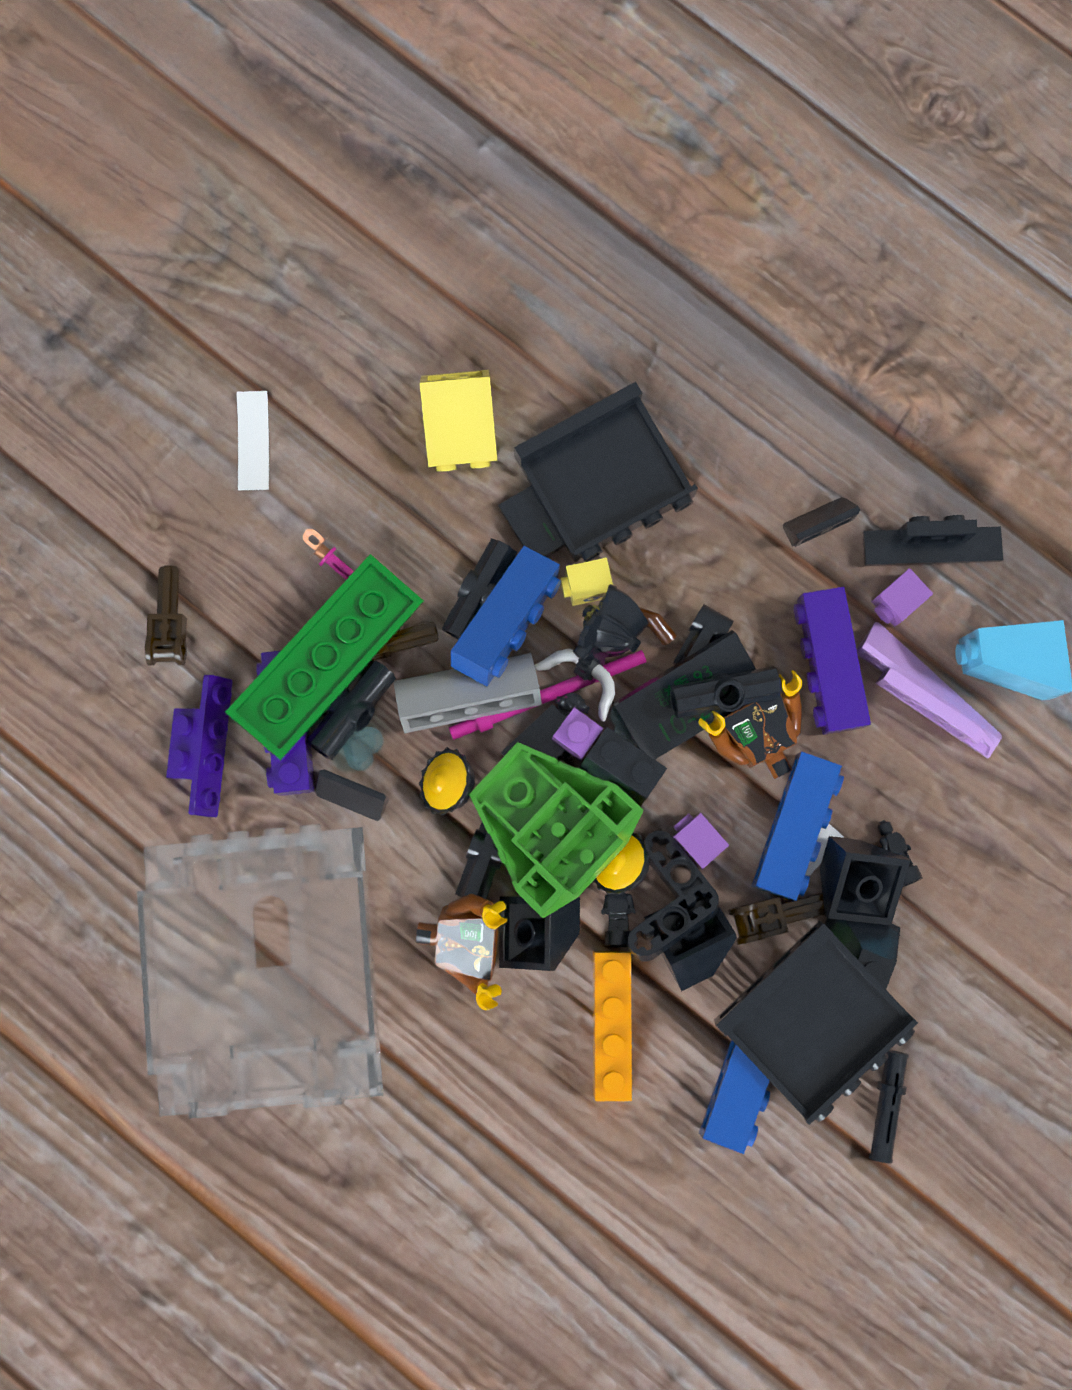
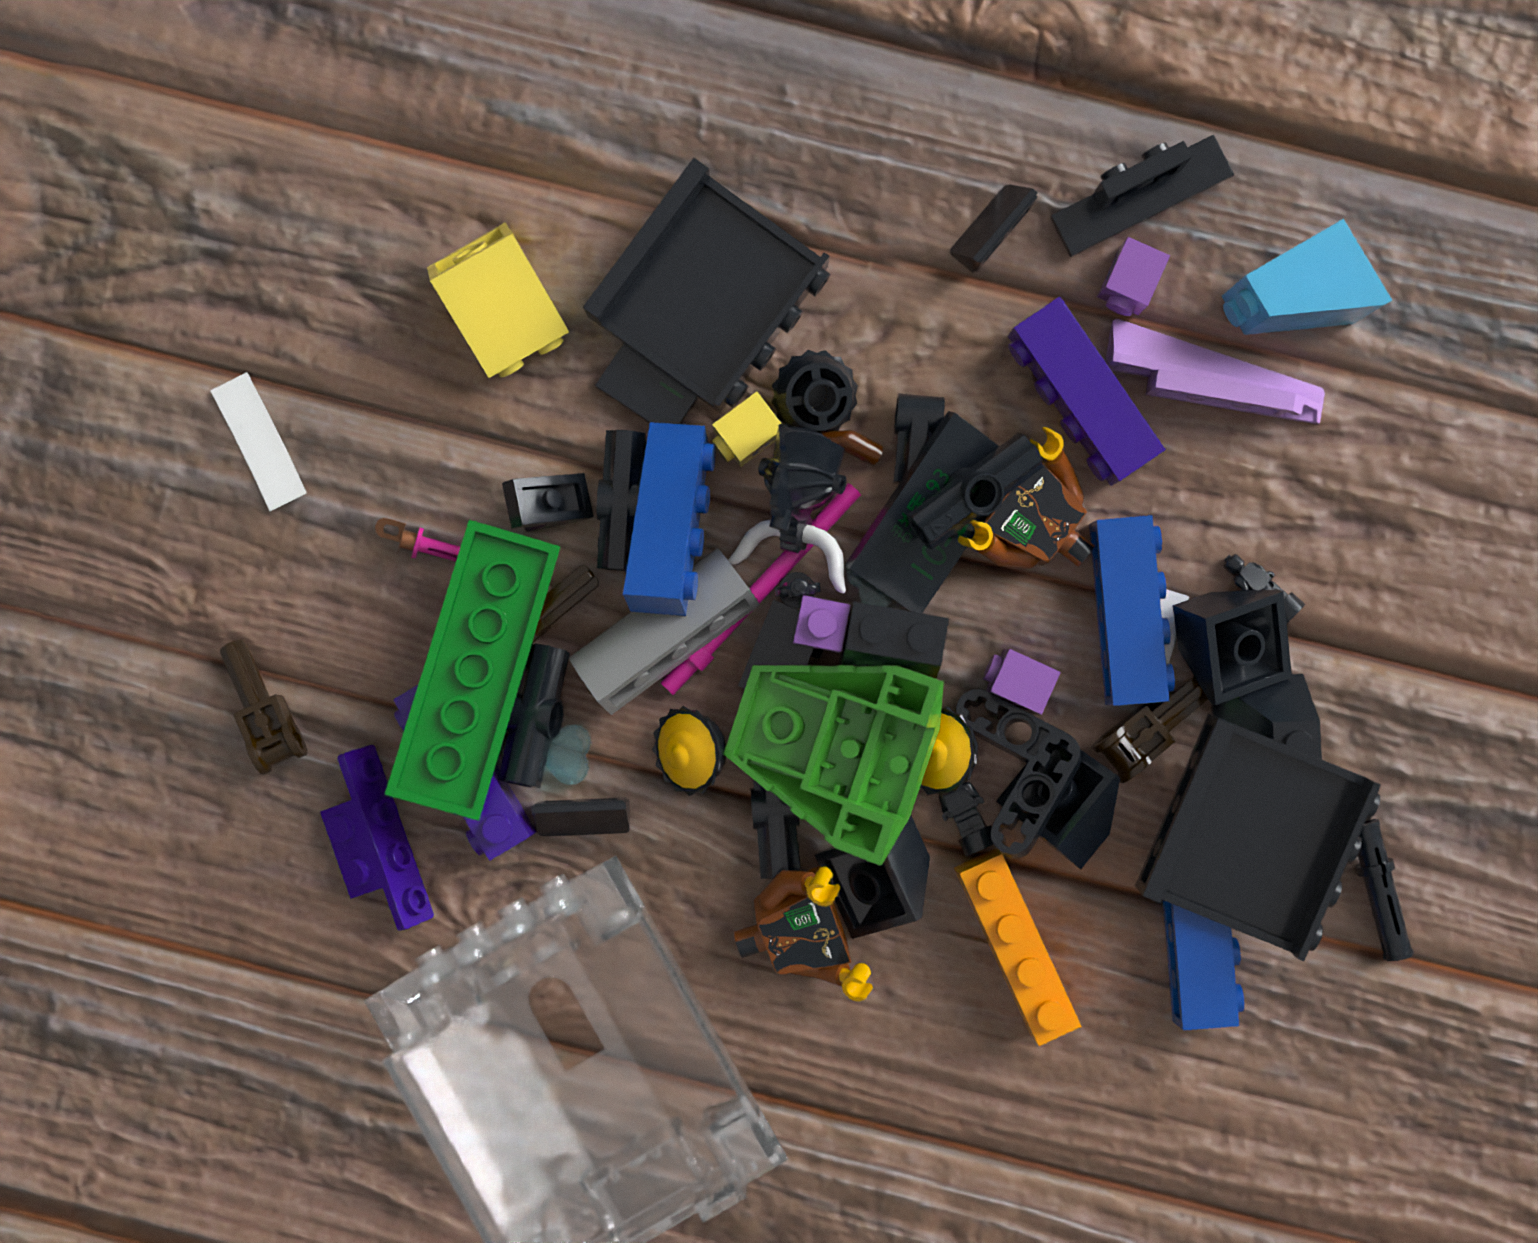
camera: 25 degrees left, 5 degrees up
(429, 567) = (547, 501): none -> black slope
(647, 577) = (813, 382): none -> black piece

